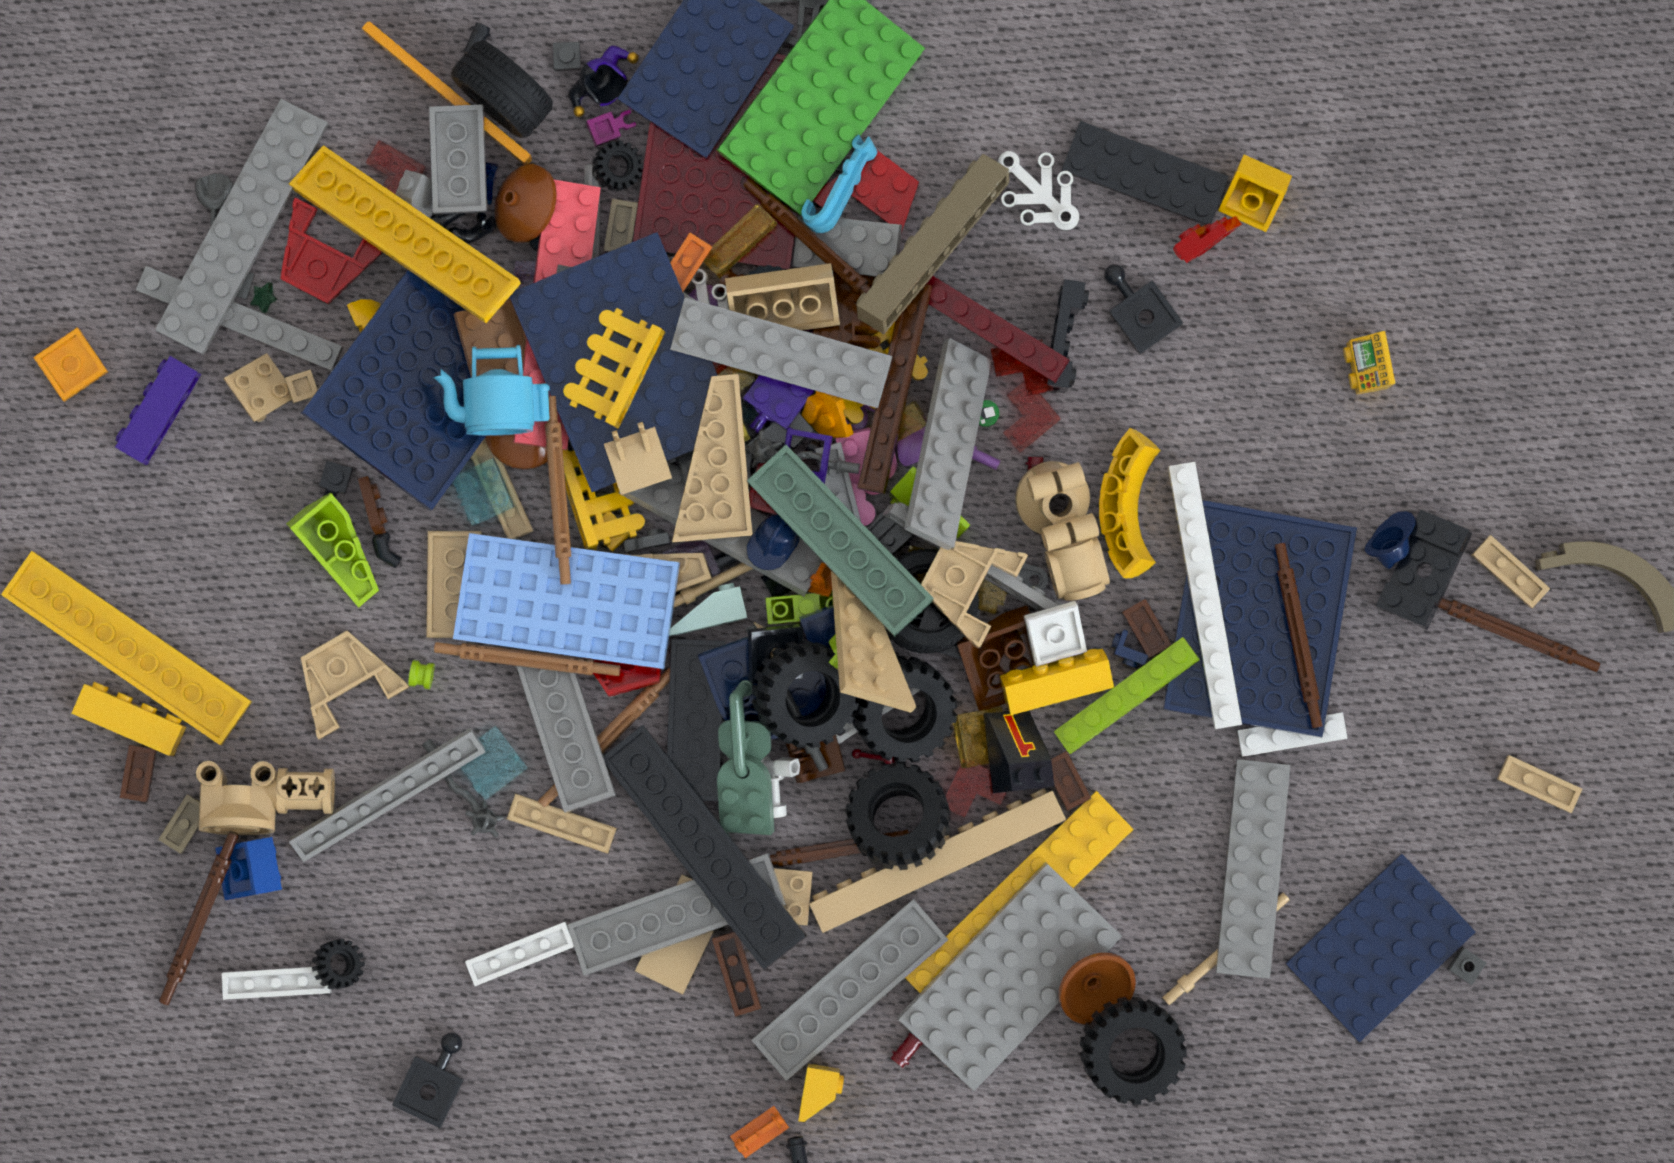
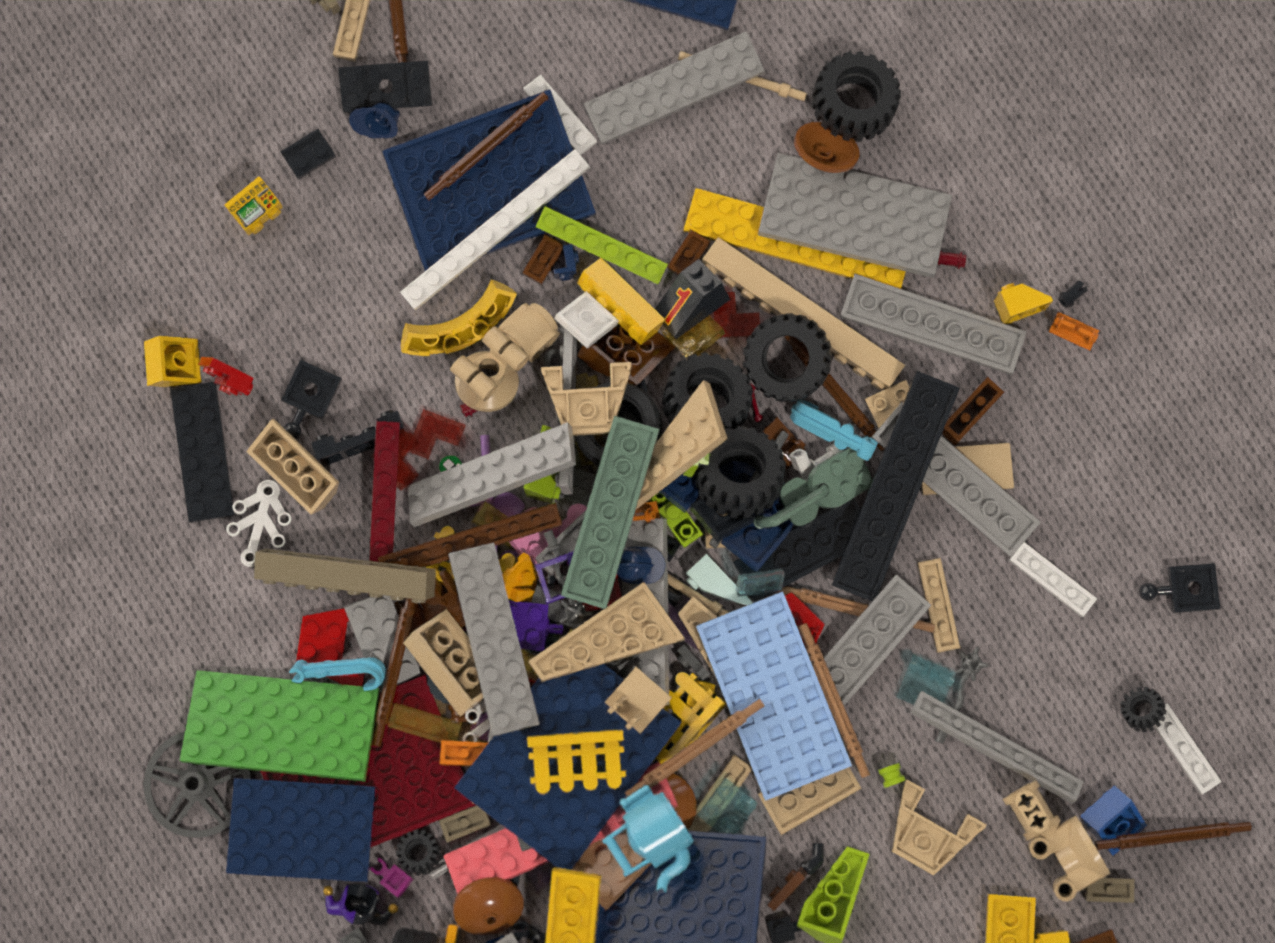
camera: 120 degrees left, 5 degrees down
(686, 653) = (760, 582): none -> clear light blue plate
(827, 801) = (811, 419): none -> medium azure piece
(1072, 252) = (293, 467): none -> tan slope
(1398, 451) = (308, 154): none -> black plate

